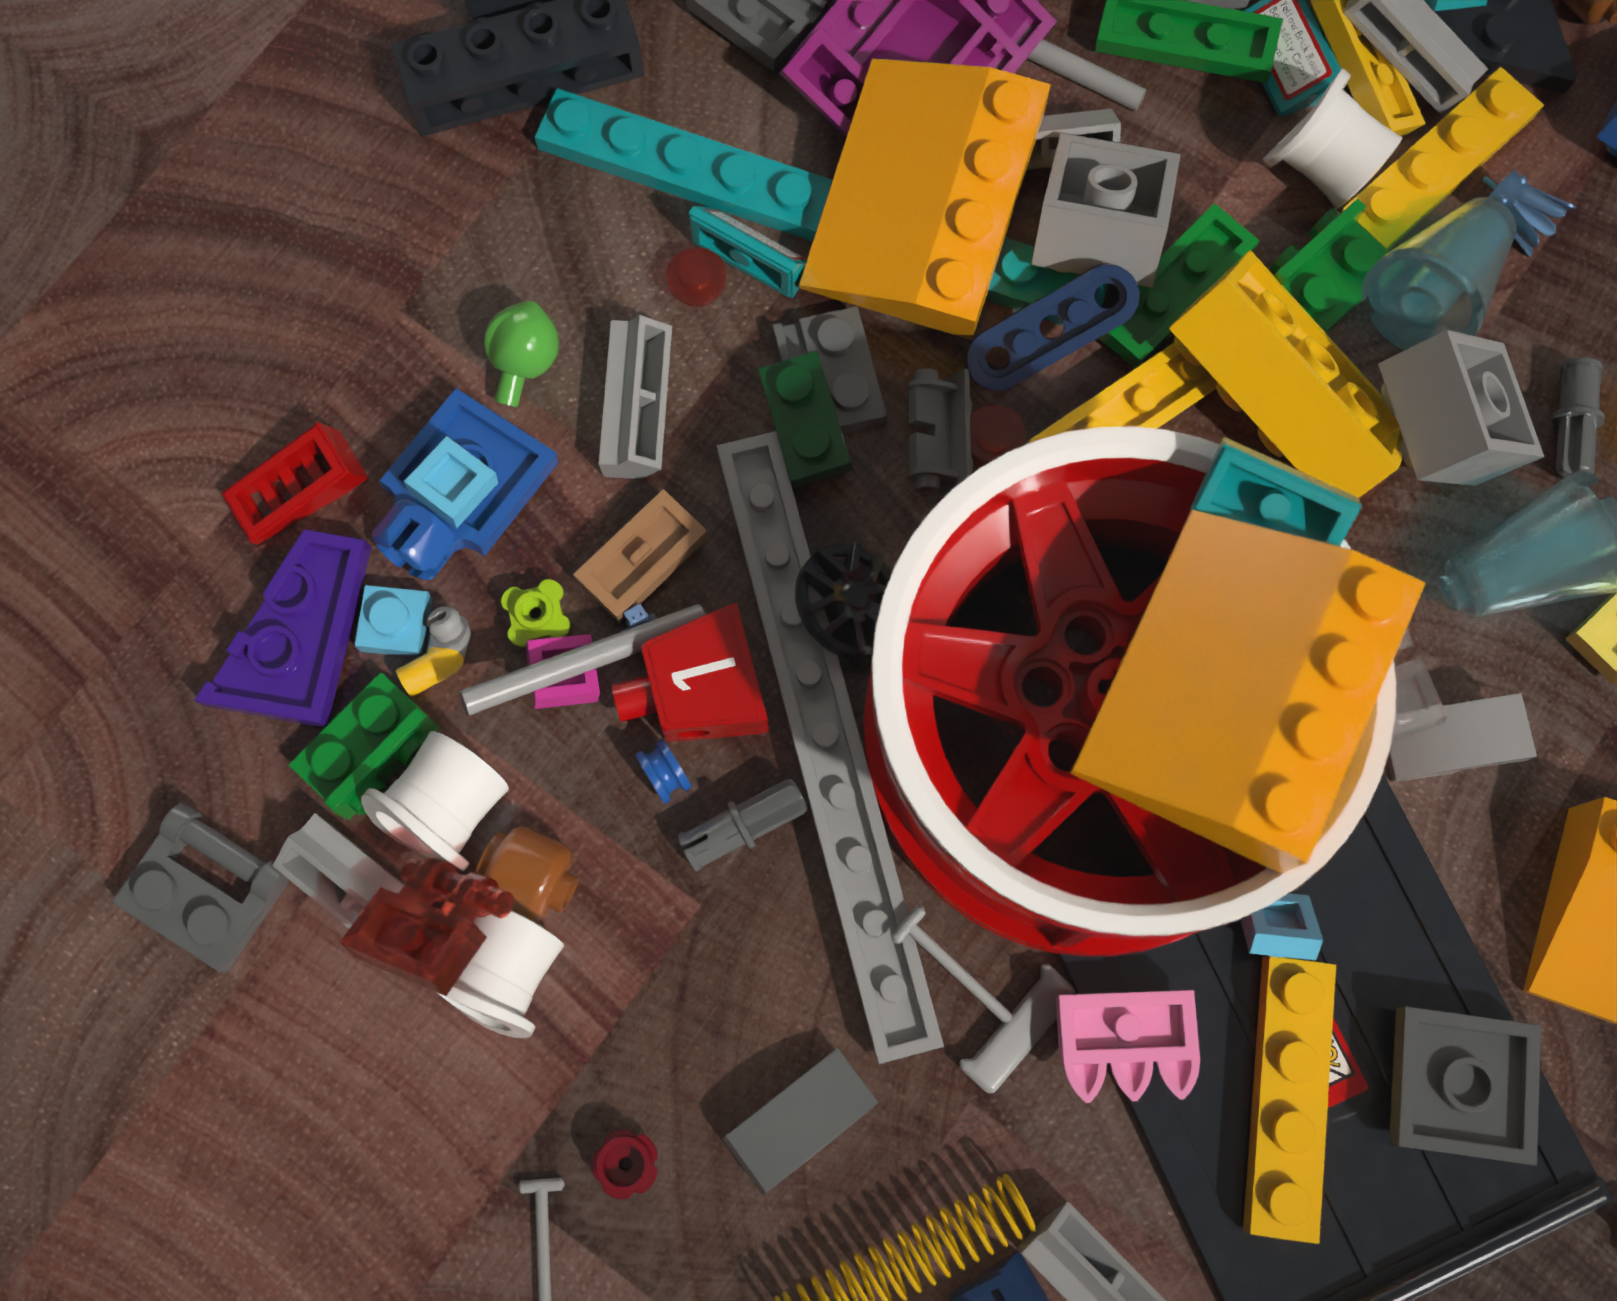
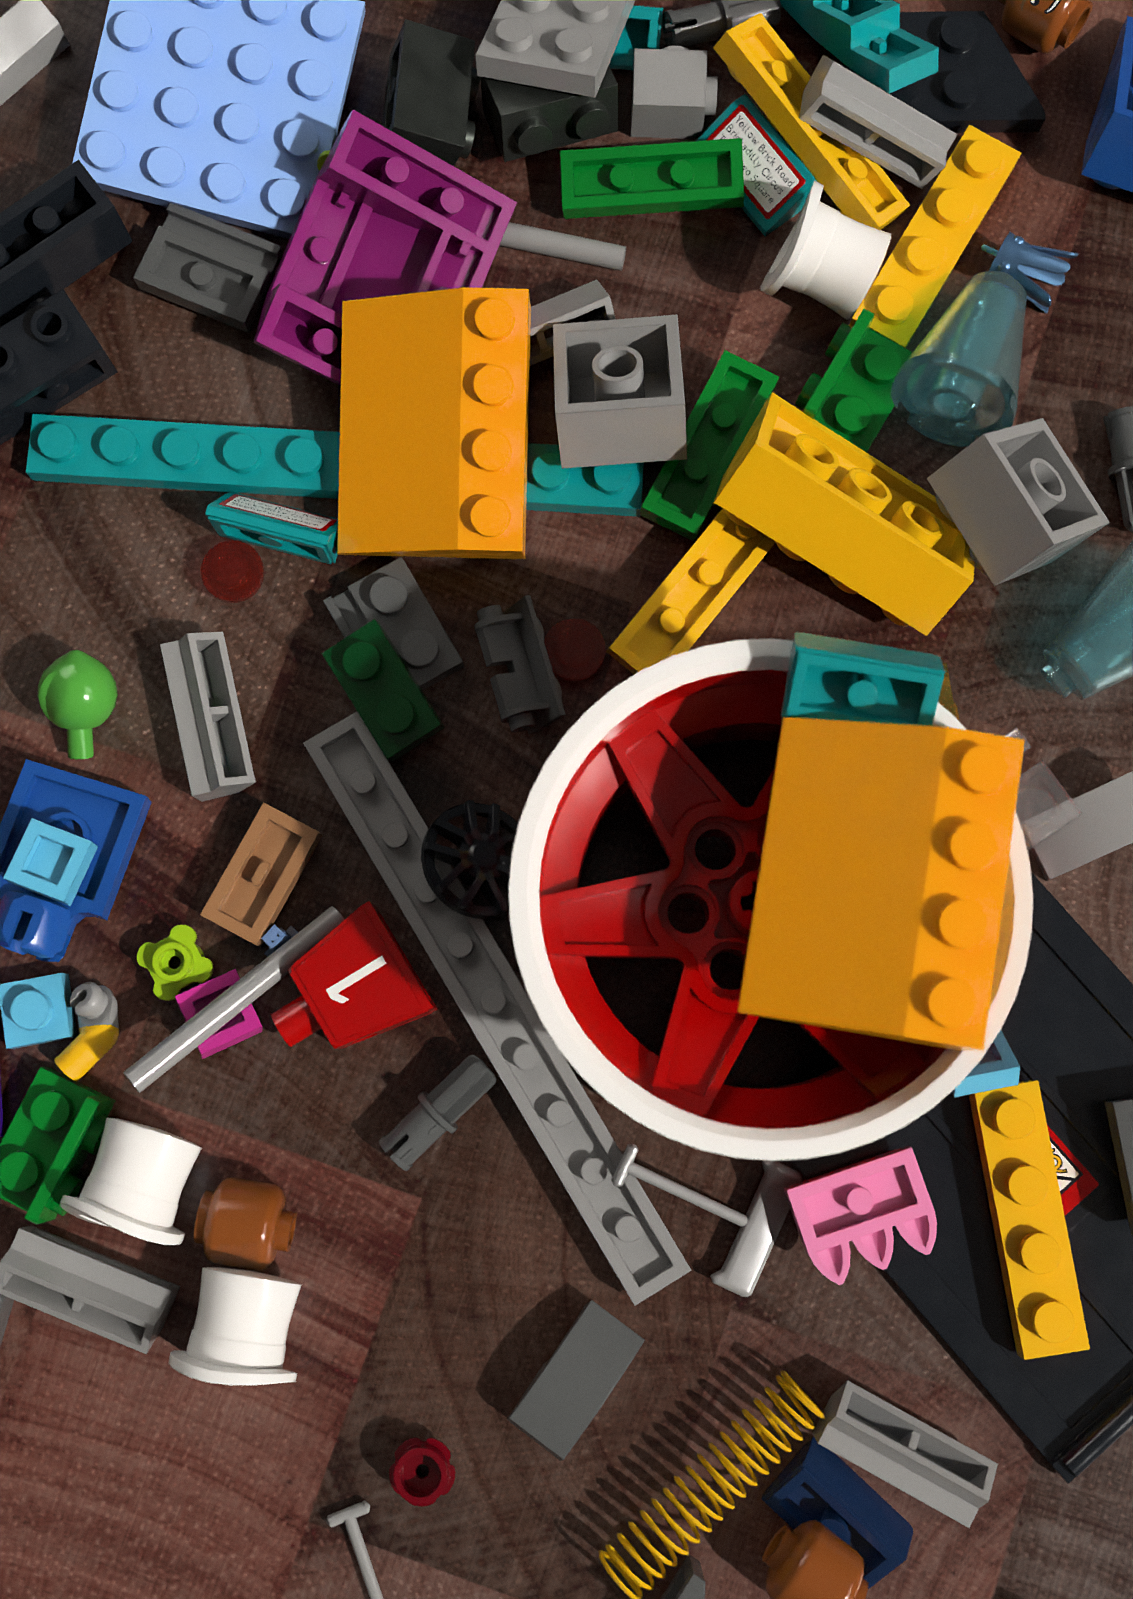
camera: 15 degrees left, 5 degrees up
(425, 942) = (159, 1333): clear red plate -> none
(663, 770) = (346, 1083): blue bush -> none
(1081, 319) = (589, 553): dark blue plate -> none

